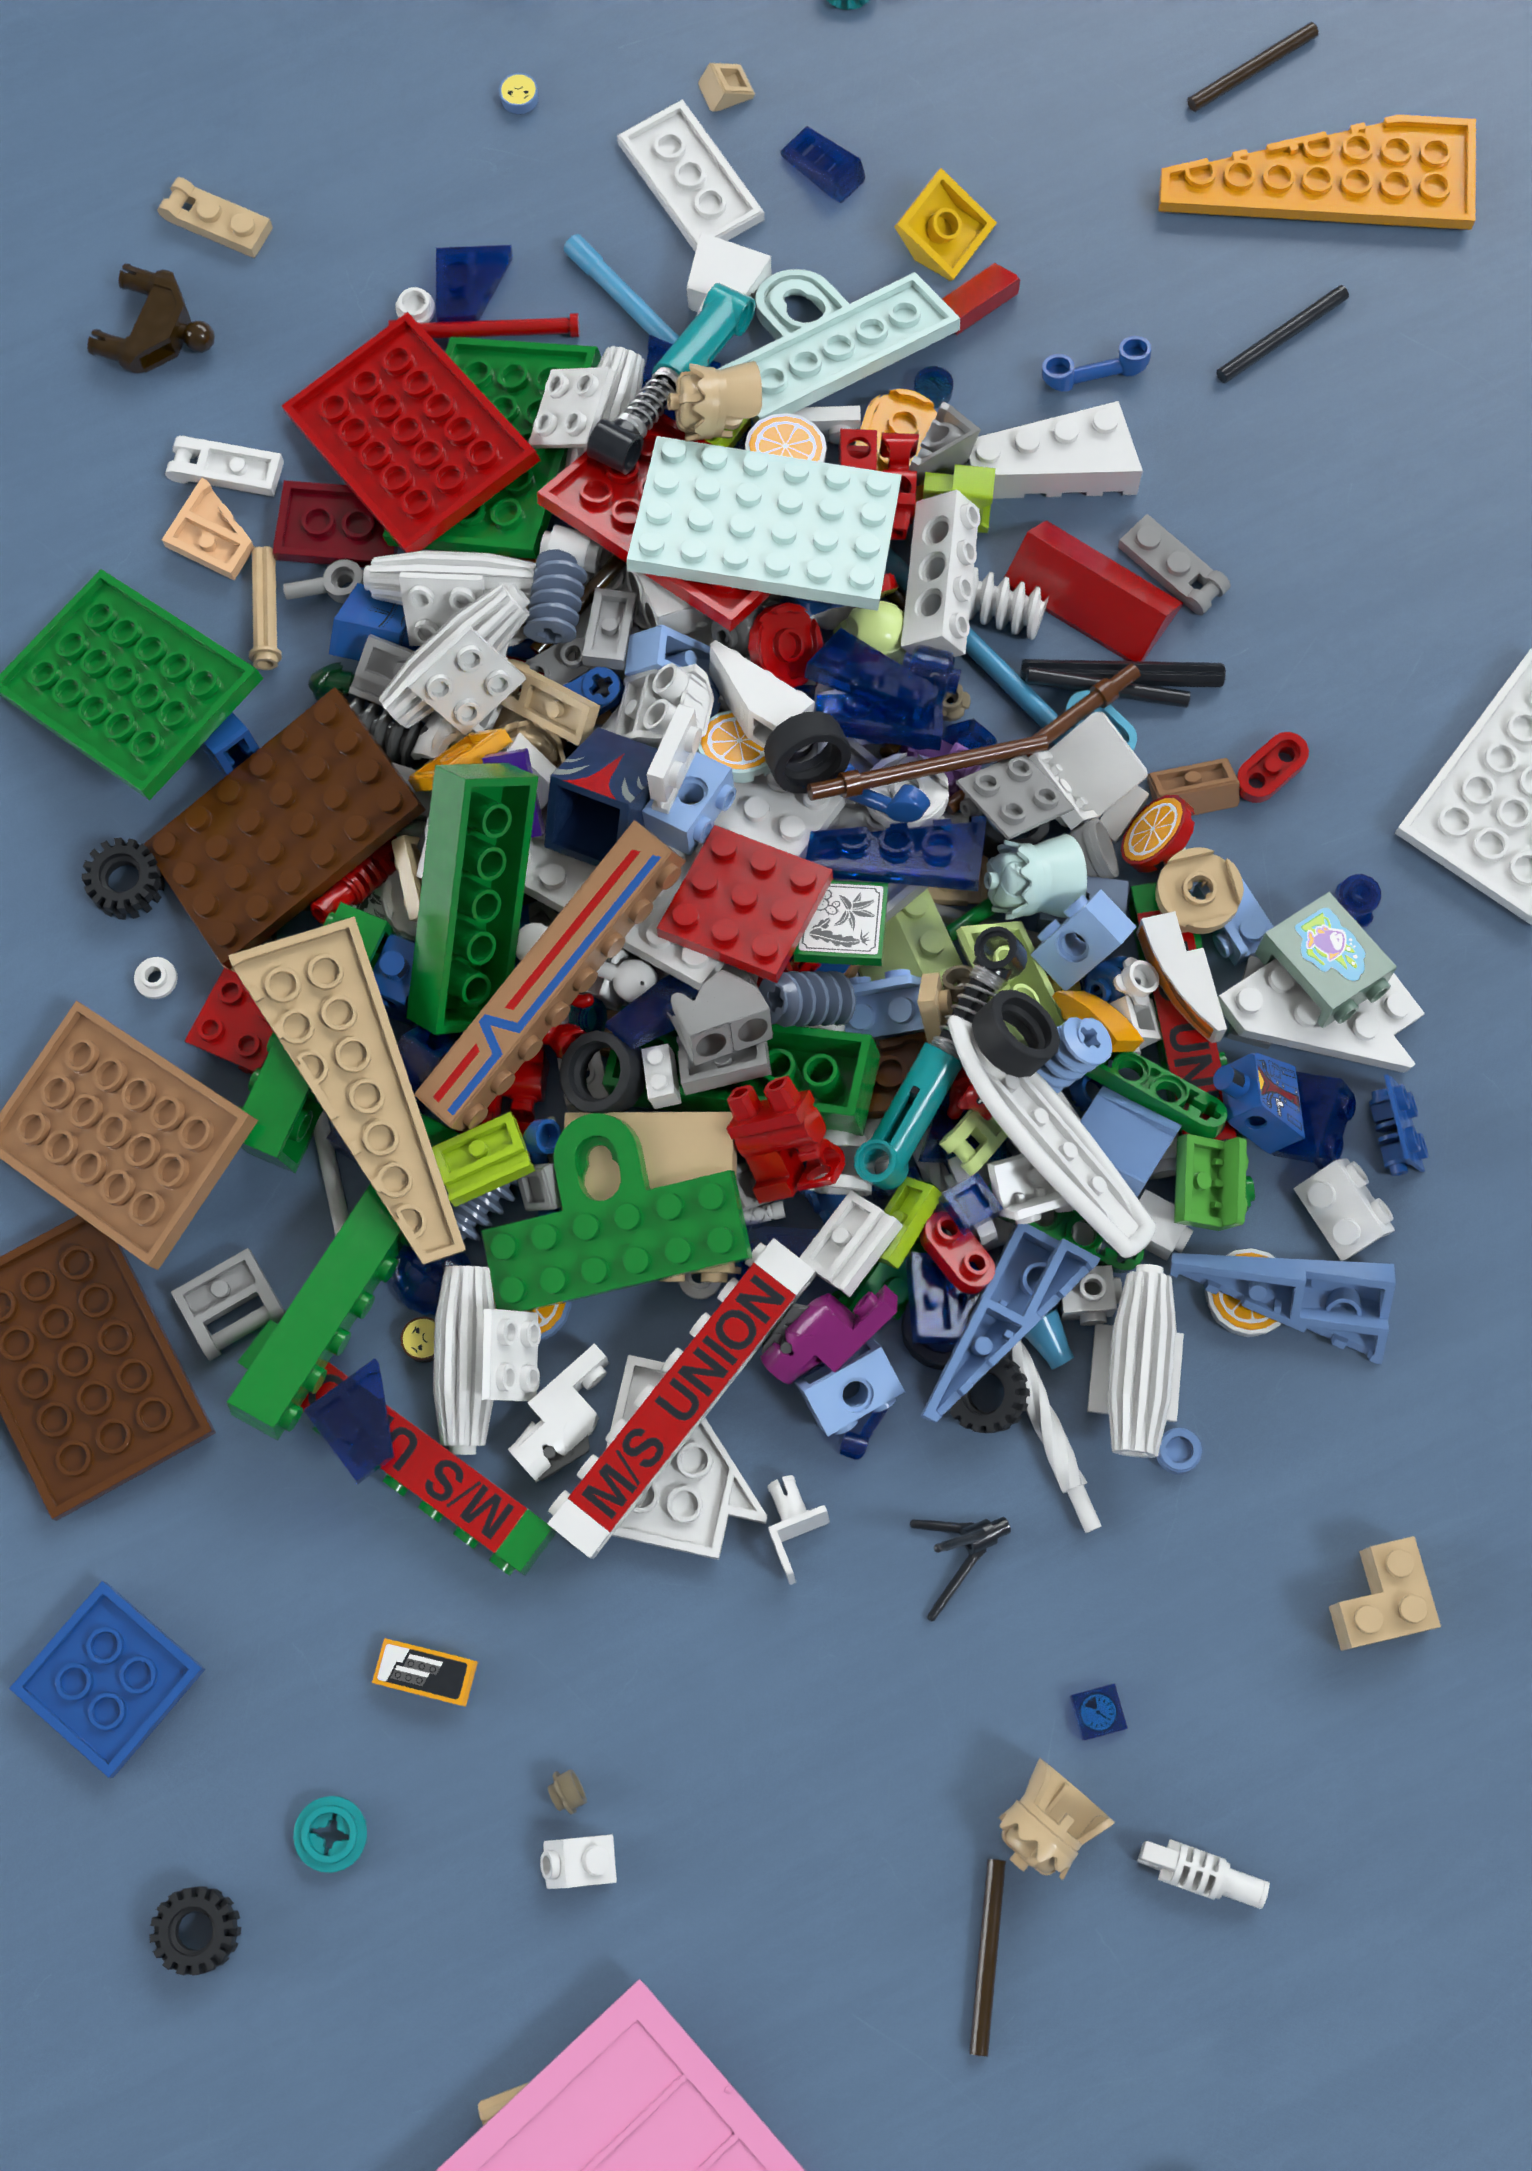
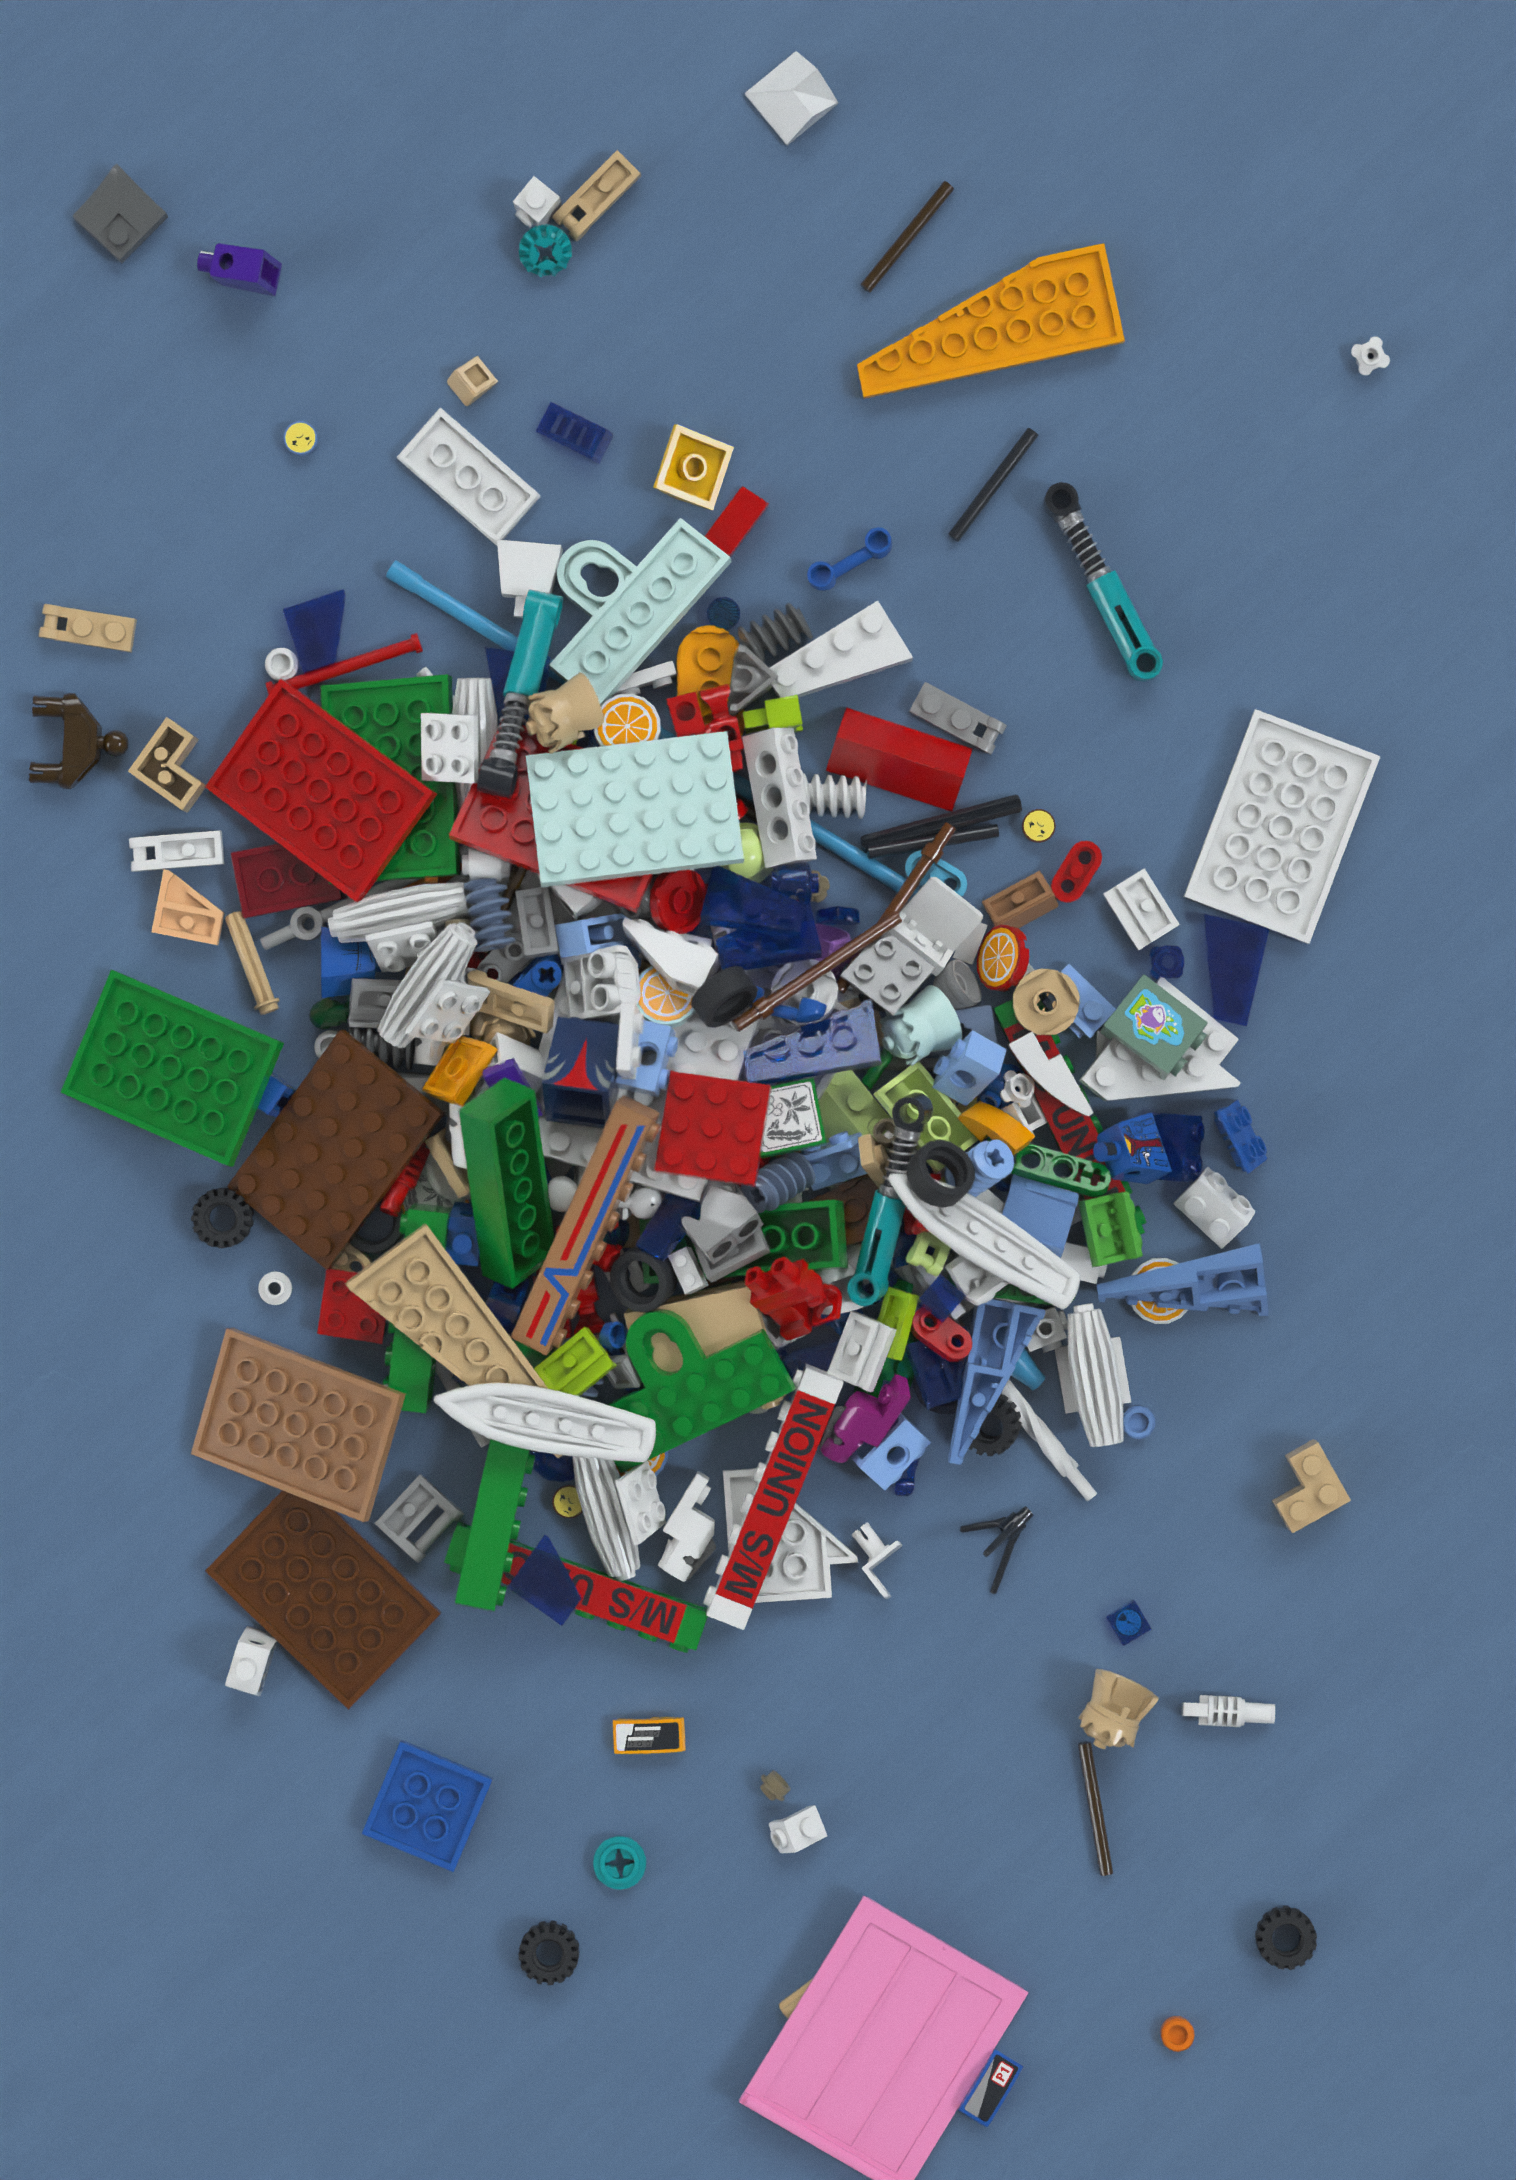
camera: 20 degrees left, 15 degrees up
(244, 363) = (161, 762): none -> tan brick
(428, 1209) = (550, 1421): none -> white piece
(994, 410) = (775, 632): none -> dark grey piece
(1239, 707) = (1038, 826): none -> light yellow tile
(1340, 830) = (1141, 909): none -> white plate
(1387, 466) = (1104, 585): none -> piece
(1438, 926) = (1233, 965): none -> clear blue wing

